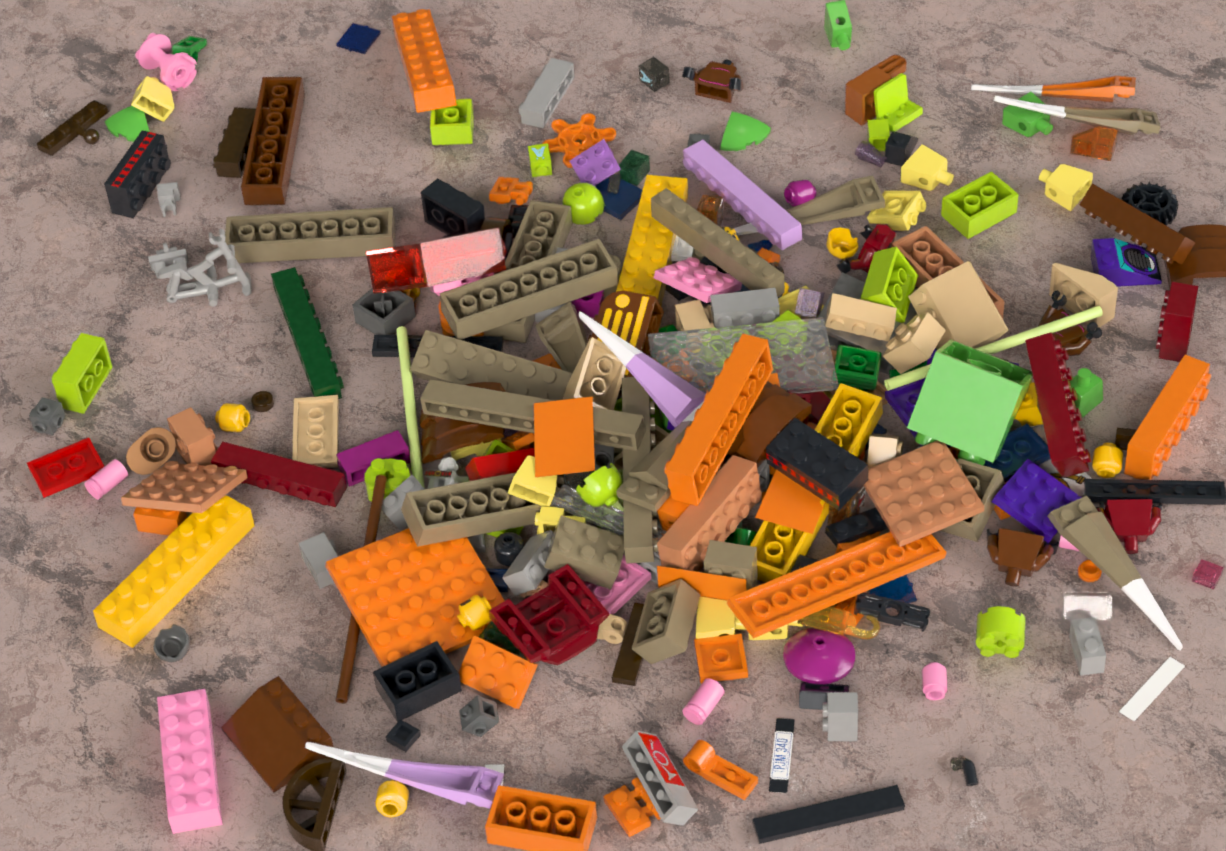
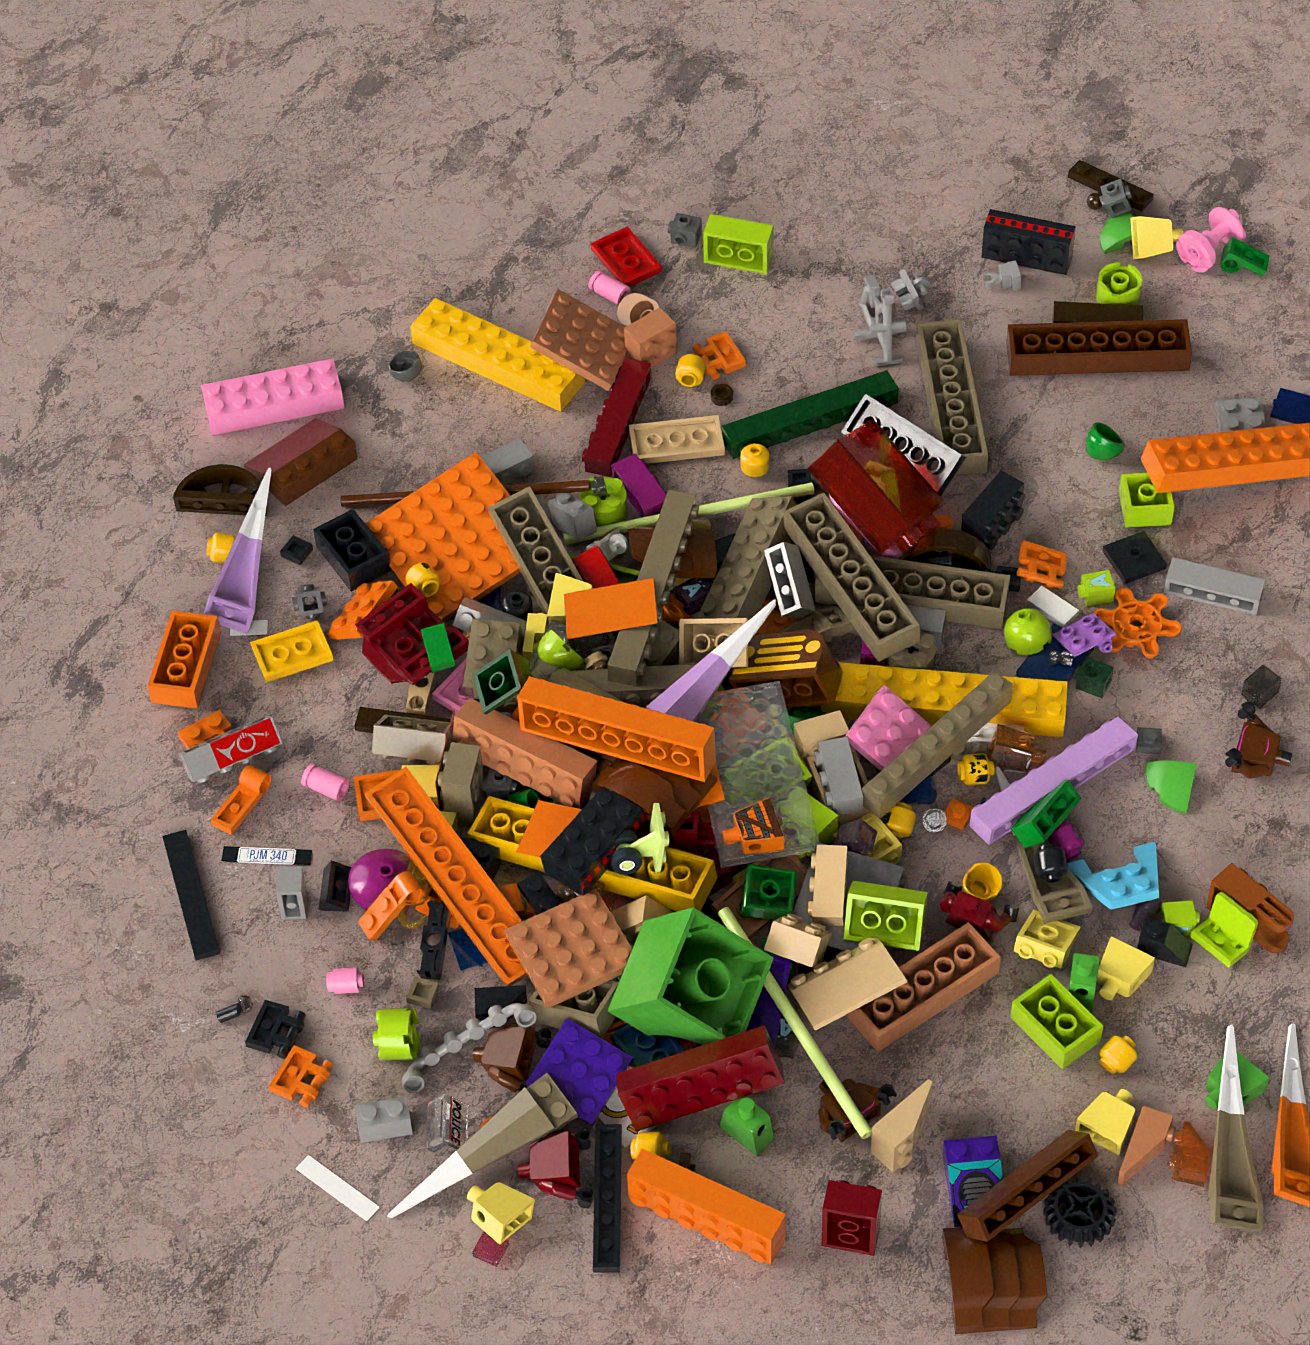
camera: 85 degrees right, 5 degrees up
(99, 116) = (1113, 194): none -> dark grey brick
(205, 123) = (1119, 285): none -> lime brick
(212, 394) = (726, 354): none -> orange plate
(351, 260) = (916, 440): none -> plate
(357, 372) = (755, 460): none -> yellow head
(365, 68) = (1239, 414): none -> light grey plate
(383, 145) = (1103, 442): none -> green hat
(385, 468) = (598, 486): none -> clear smoke plate
(505, 140) = (1134, 557): none -> black plate
(518, 340) = (789, 580): none -> light grey brick
(535, 736) = (291, 651): none -> yellow plate
(552, 190) = (1052, 607): none -> white tile
(575, 586) = (438, 647): none -> green tile
(614, 457) = (596, 661): none -> tan plate
(657, 504) = (501, 679): none -> dark green slope
(789, 197) = (1046, 815): none -> green slope
(814, 346) = (756, 829): none -> torso
(828, 410) = (630, 849): none -> plate
(831, 194) = (1050, 863): none -> black head
(848, 155) = (1124, 884): none -> medium azure wing
(860, 636) = (400, 892): none -> orange plate
(939, 183) = (1084, 976): none -> bright green torso
(947, 622) = (422, 992): none -> dark tan plate
(963, 566) = (502, 995): none -> black slope
(986, 741) = (268, 1025): none -> black plate
(995, 575) = (524, 1016): none -> light grey bar
(1008, 173) = (1118, 1054): none -> yellow head
(1036, 719) = (294, 1071): none -> orange plate
(1083, 159) = (1147, 1141): none -> nougat slope
(1178, 558) = (500, 1210): none -> light yellow torso

